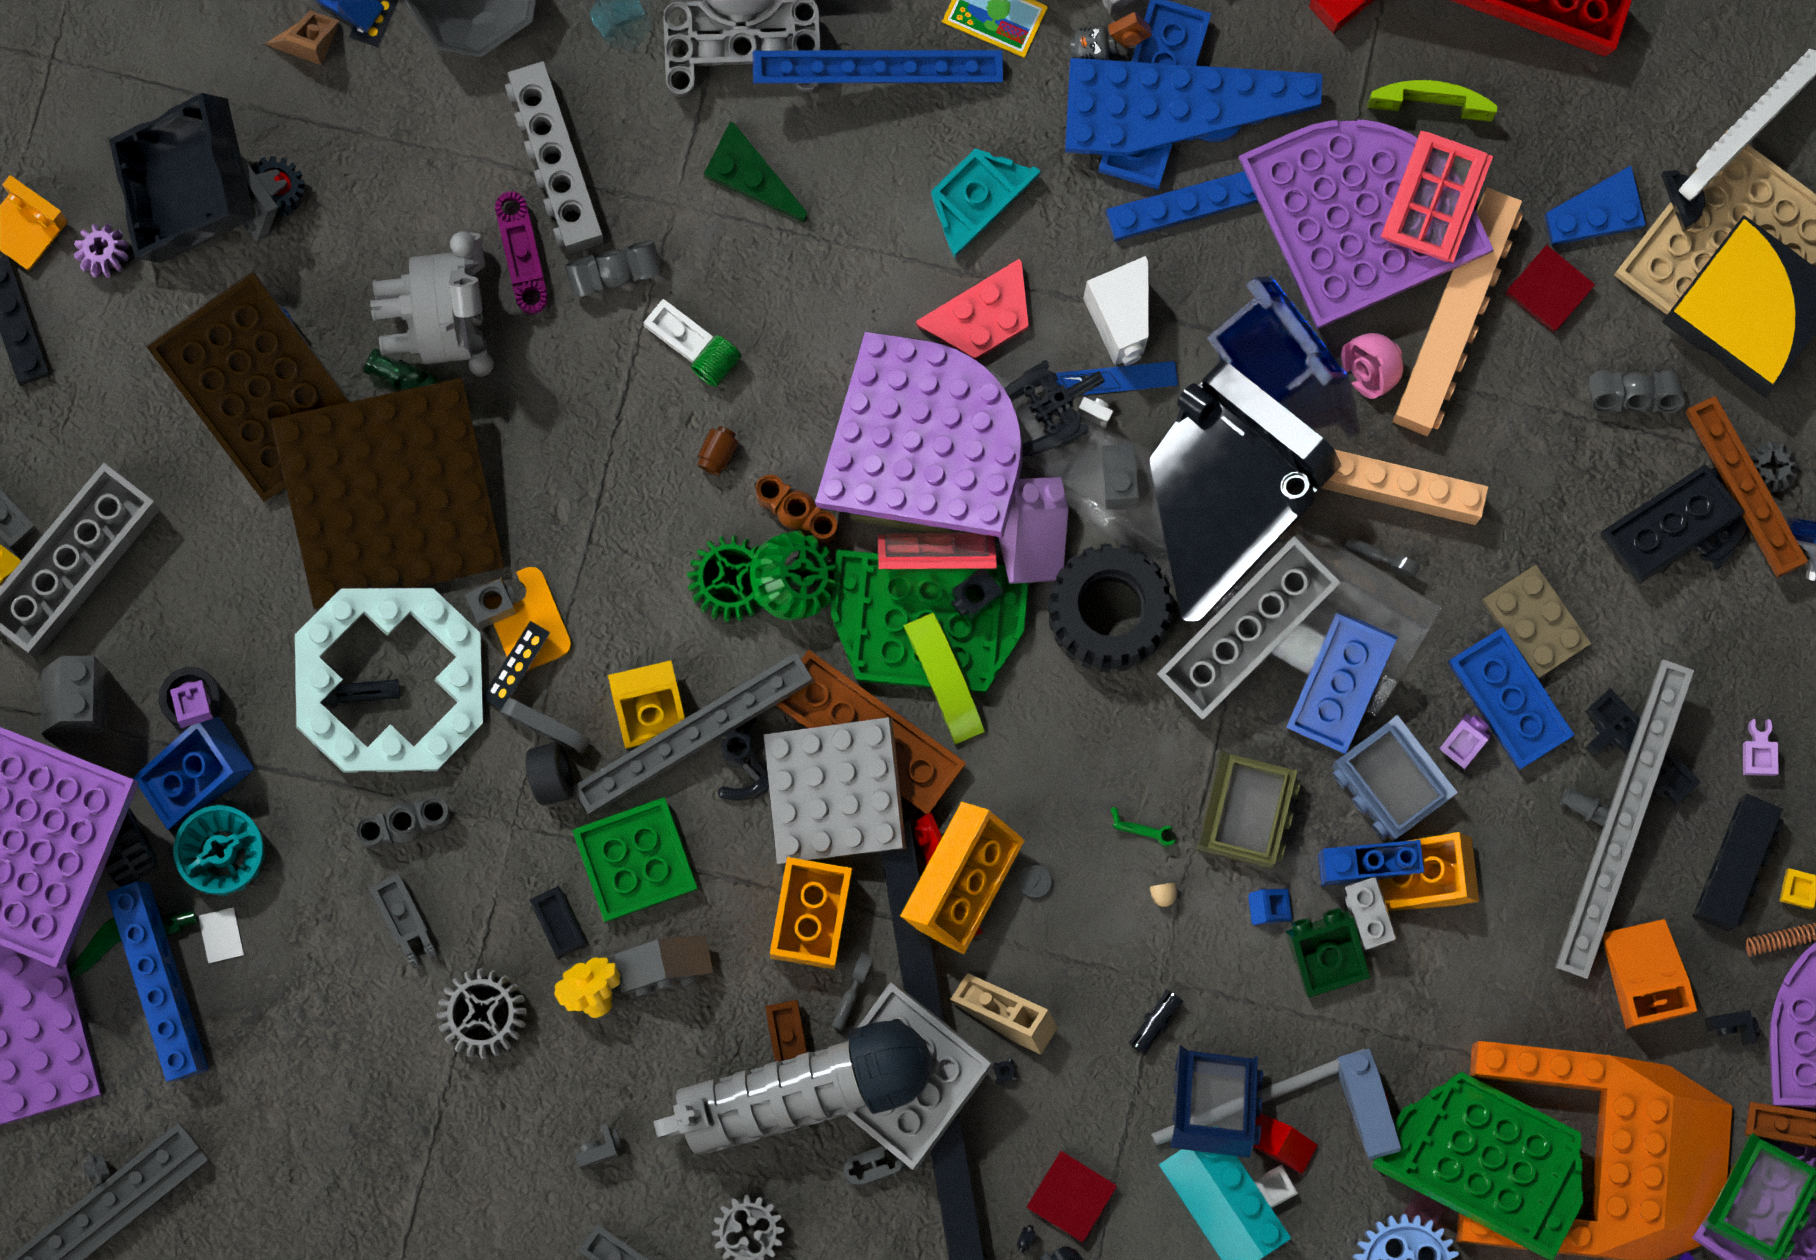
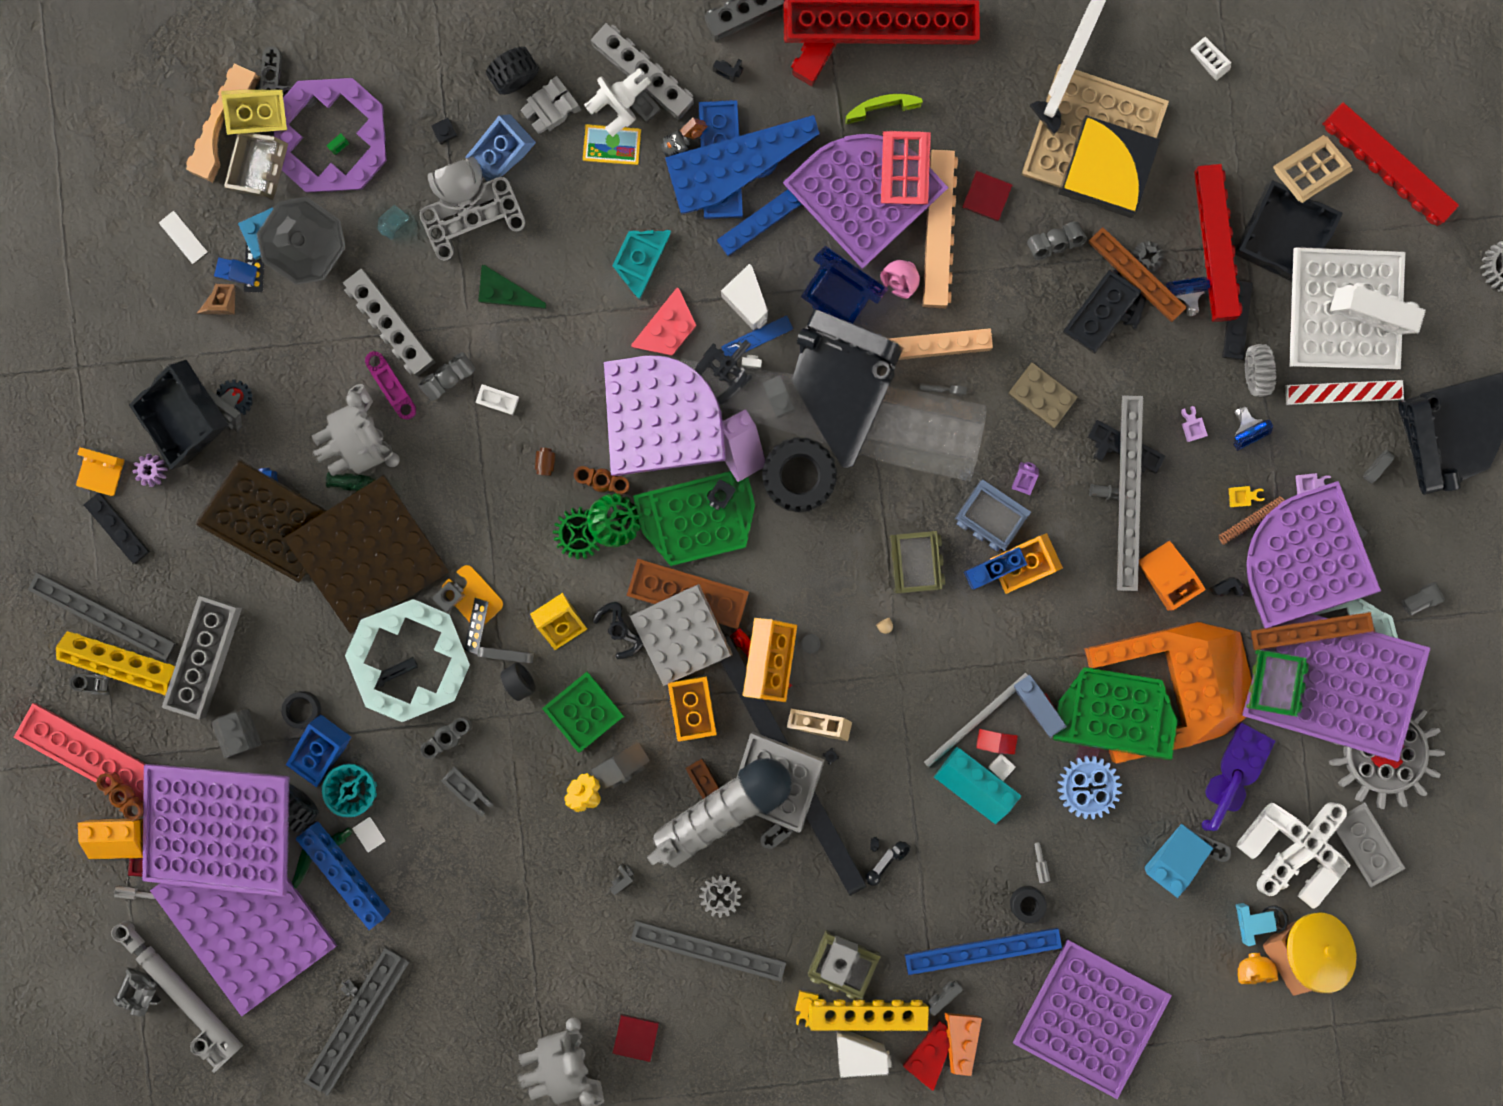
camera: 15 degrees left, 10 degrees up
(191, 703) = (301, 716): medium lavender bracket -> none
(469, 1022) = (522, 824): light grey gear -> none
(558, 922) = (553, 761): black tile -> none
(693, 734) = (590, 630): dark grey plate -> none
(716, 360) = (525, 409): green piece -> none
(850, 996) = (730, 745): dark grey piece -> none
(877, 66) = (555, 203): blue plate -> none
(936, 551) = (688, 479): piece -> none
(944, 678) = (719, 547): lime slope -> none
(1071, 1196) = (891, 812): dark red tile -> none
(1139, 829) = (858, 593): green piece -> none
(1155, 1022) = (905, 699): black pin -> none
(1216, 1103) = (955, 735): dark blue window -> none
(1250, 626) = (883, 459): light grey brick -> none
(1269, 906) = (946, 611): blue slope -> none
(1327, 952) = (987, 627): dark green plate -> none
(1342, 682) = (945, 471): plate -> none
(1371, 914) = (1005, 598): light grey bracket -> none
(1510, 698) = (1043, 445): blue plate -> none
(1598, 212) = (1000, 139): blue wing -> none
(1738, 863) = (1200, 494): black brick -> none

